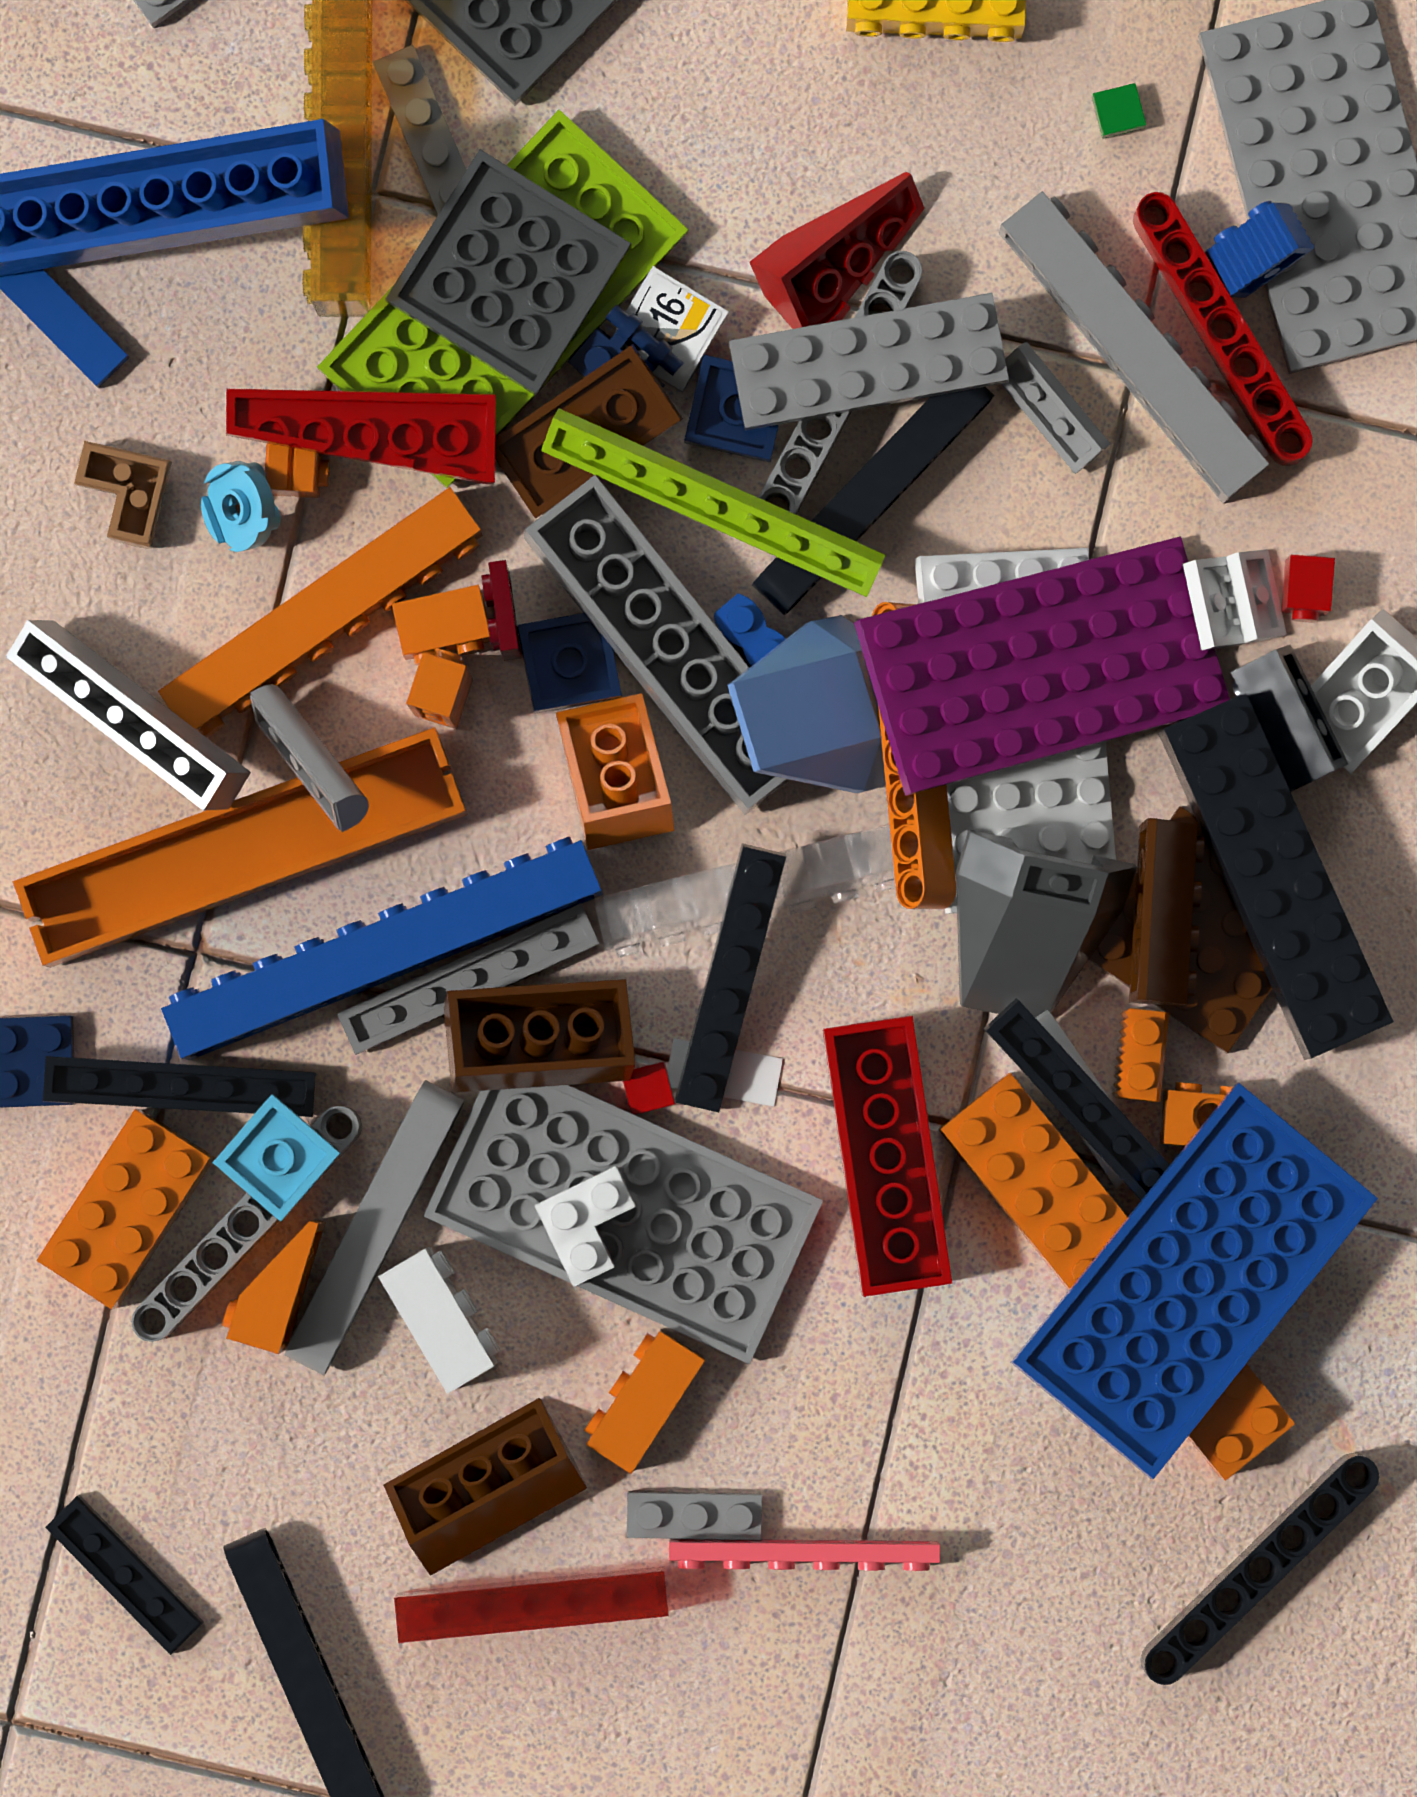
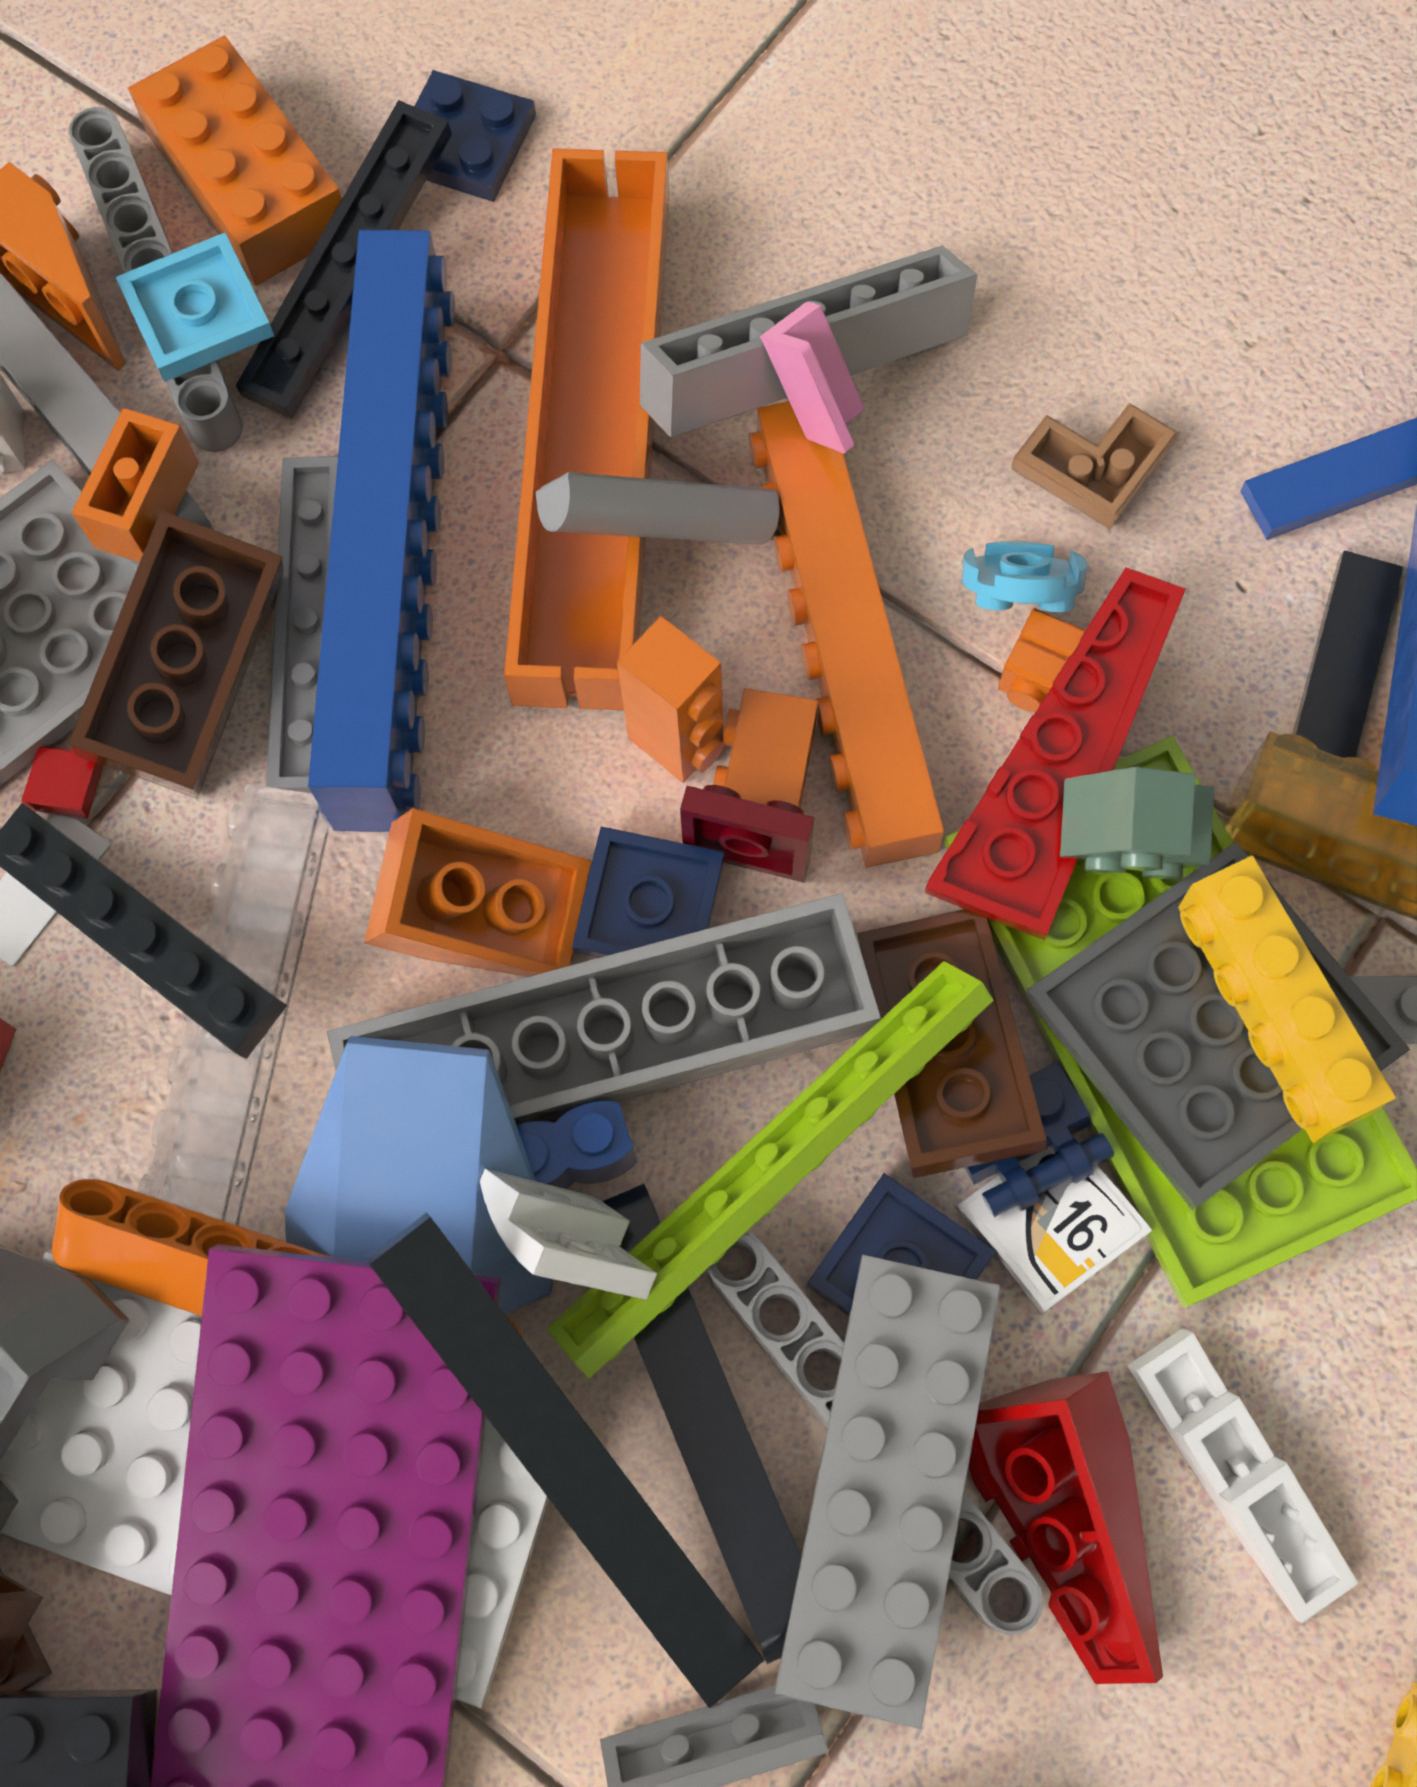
camera: 115 degrees right, 15 degrees down
(169, 691) = (814, 376): none -> bright pink panel
(211, 274) = (1347, 653): none -> black tile
(407, 361) = (1137, 822): none -> sand green brick
(435, 1117) = (135, 476): none -> orange brick
(486, 235) = (1283, 1000): none -> yellow brick
(771, 166) = (1243, 1475): none -> white slope
(811, 600) = (564, 1235): none -> white slope
(936, 543) = (565, 1457): none -> black tile

